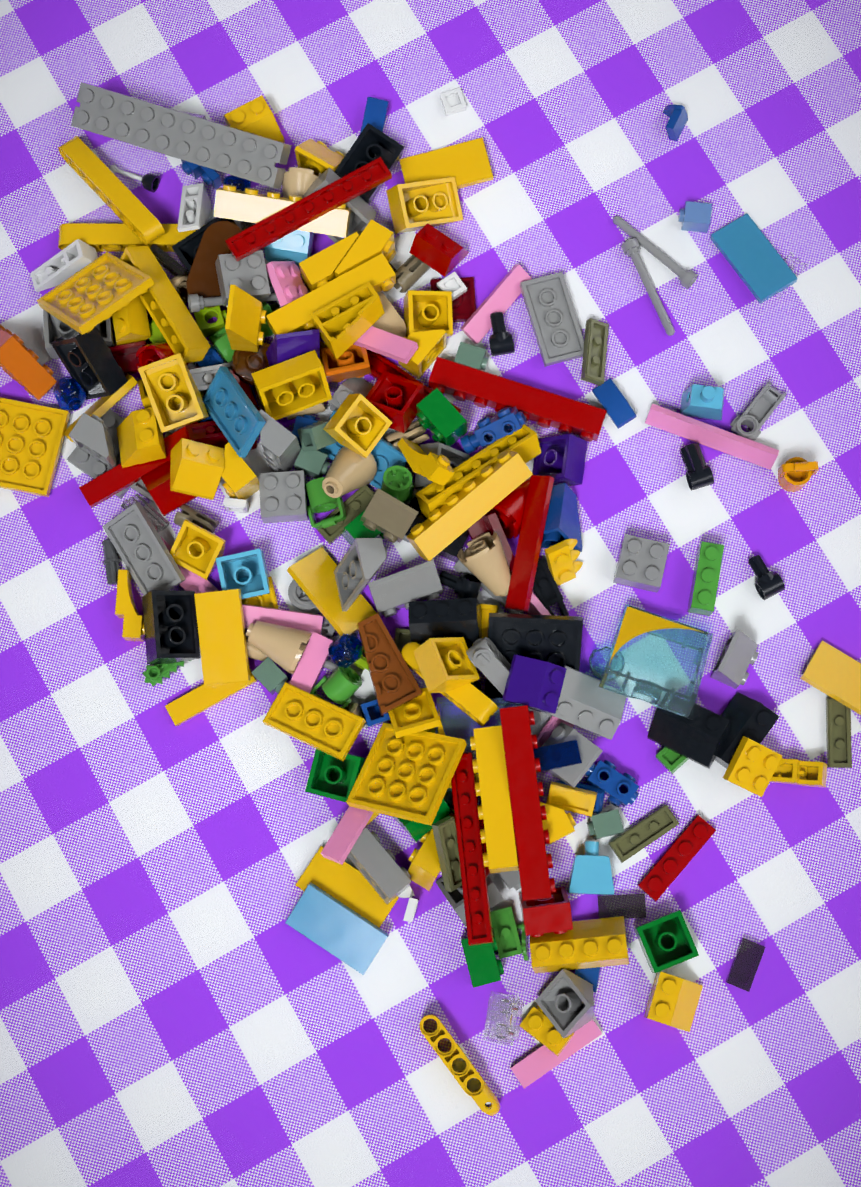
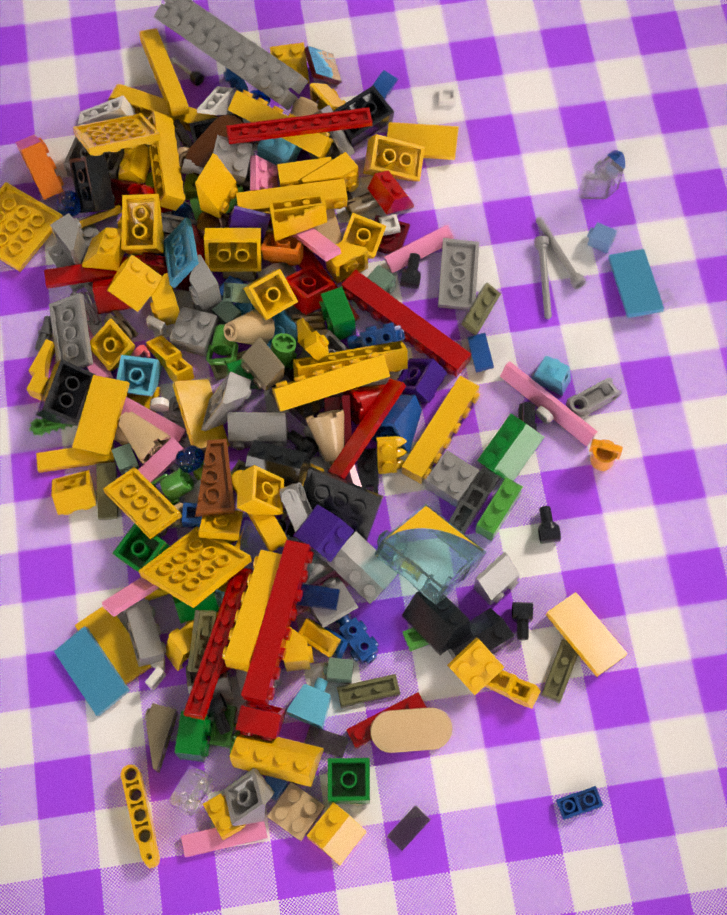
camera: 20 degrees right, 10 degrees down
(227, 735) = (73, 493): none -> yellow slope
(231, 544) = (141, 351): none -> coral tile
(257, 708) = (106, 474): none -> olive tile
(270, 539) = (170, 359): none -> yellow slope
(281, 598) = (159, 404): none -> white tile
(294, 115) = (322, 65): none -> tile
(438, 962) = (159, 728): none -> dark tan slope
(500, 925) = (216, 711): none -> black axle
(606, 510) = (440, 429): none -> yellow brick
(620, 993) = (296, 811): none -> tan plate
(671, 147) = (601, 180): none -> clear slope
(673, 579) = (474, 500): none -> dark grey slope
(693, 505) = (511, 448): none -> slope
(708, 860) = (411, 730): none -> tan tile
(712, 451) = (544, 415): none -> white tile
(775, 686) = (522, 614): none -> black axle

